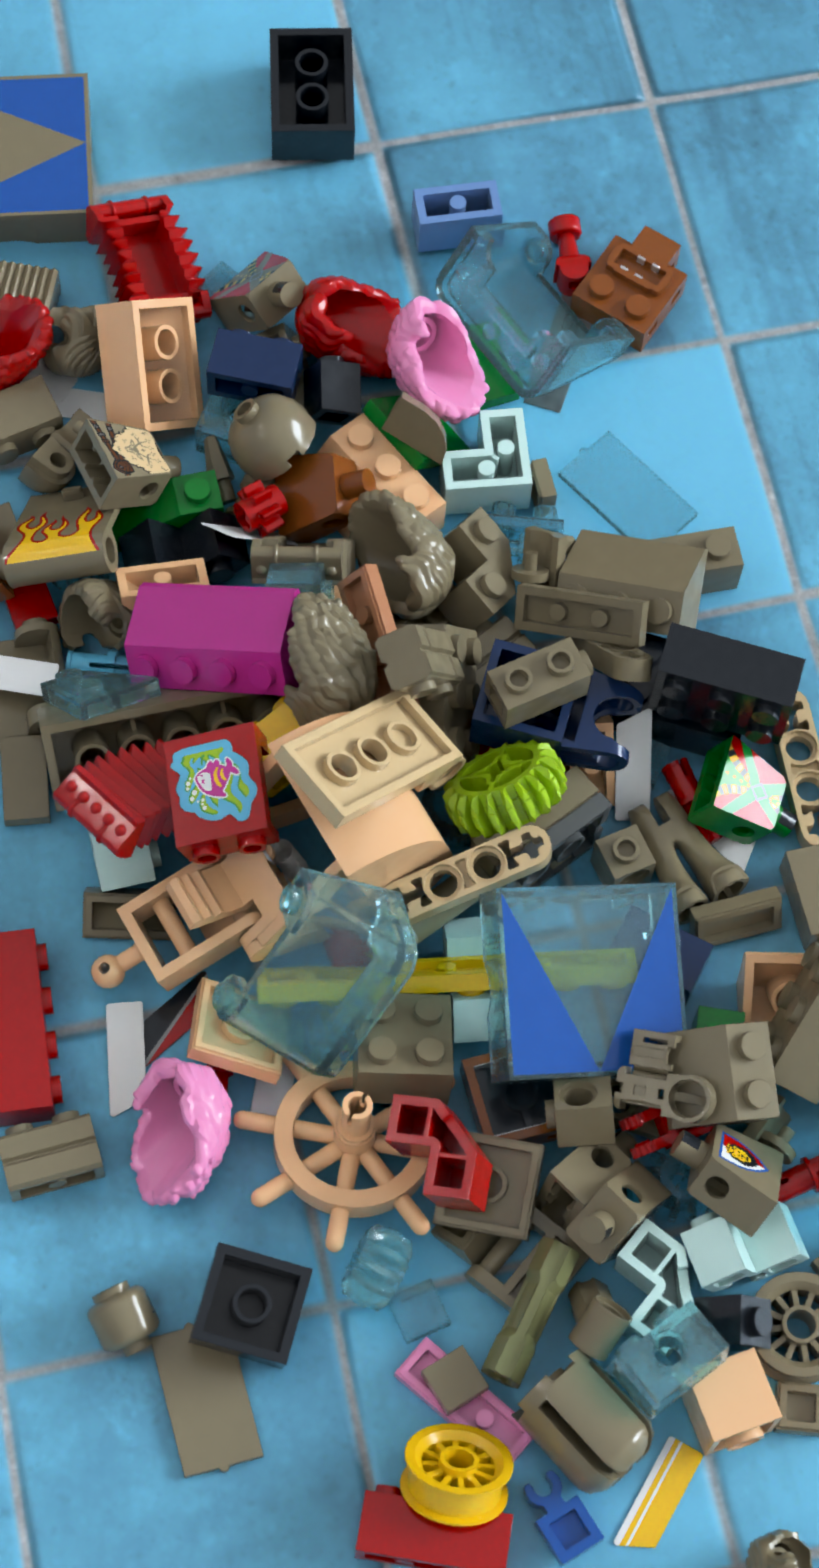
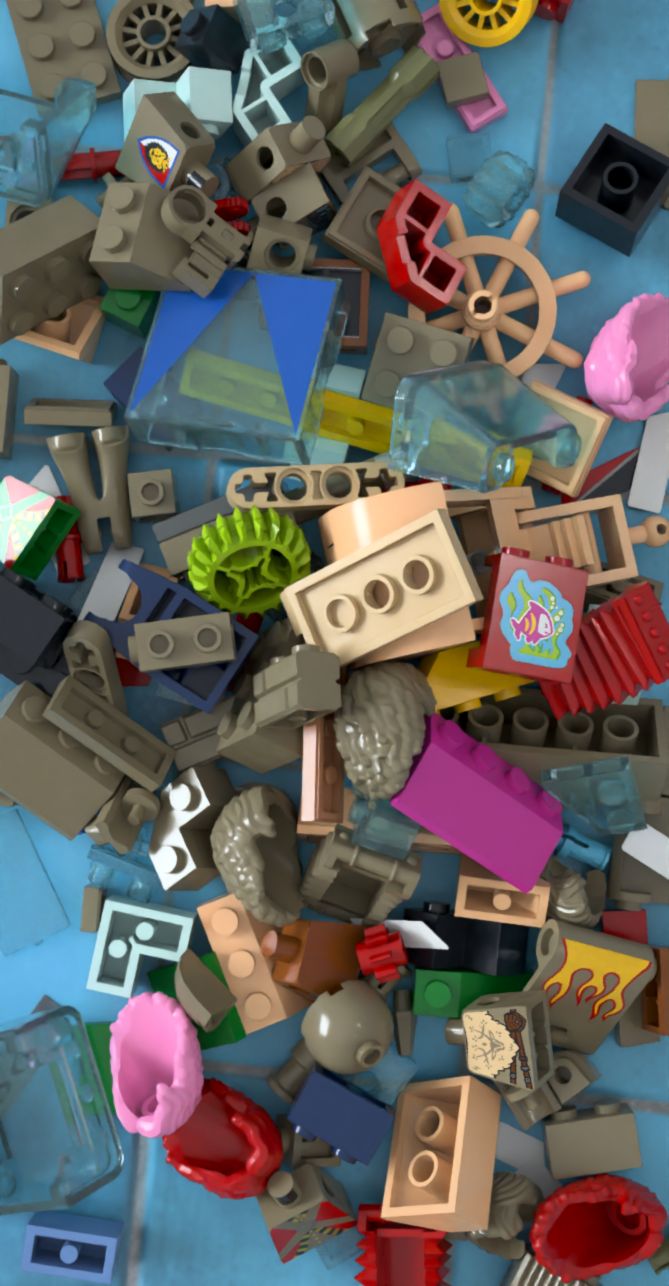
camera: 155 degrees left, 20 degrees up
(332, 390) = (268, 1069): black brick -> none

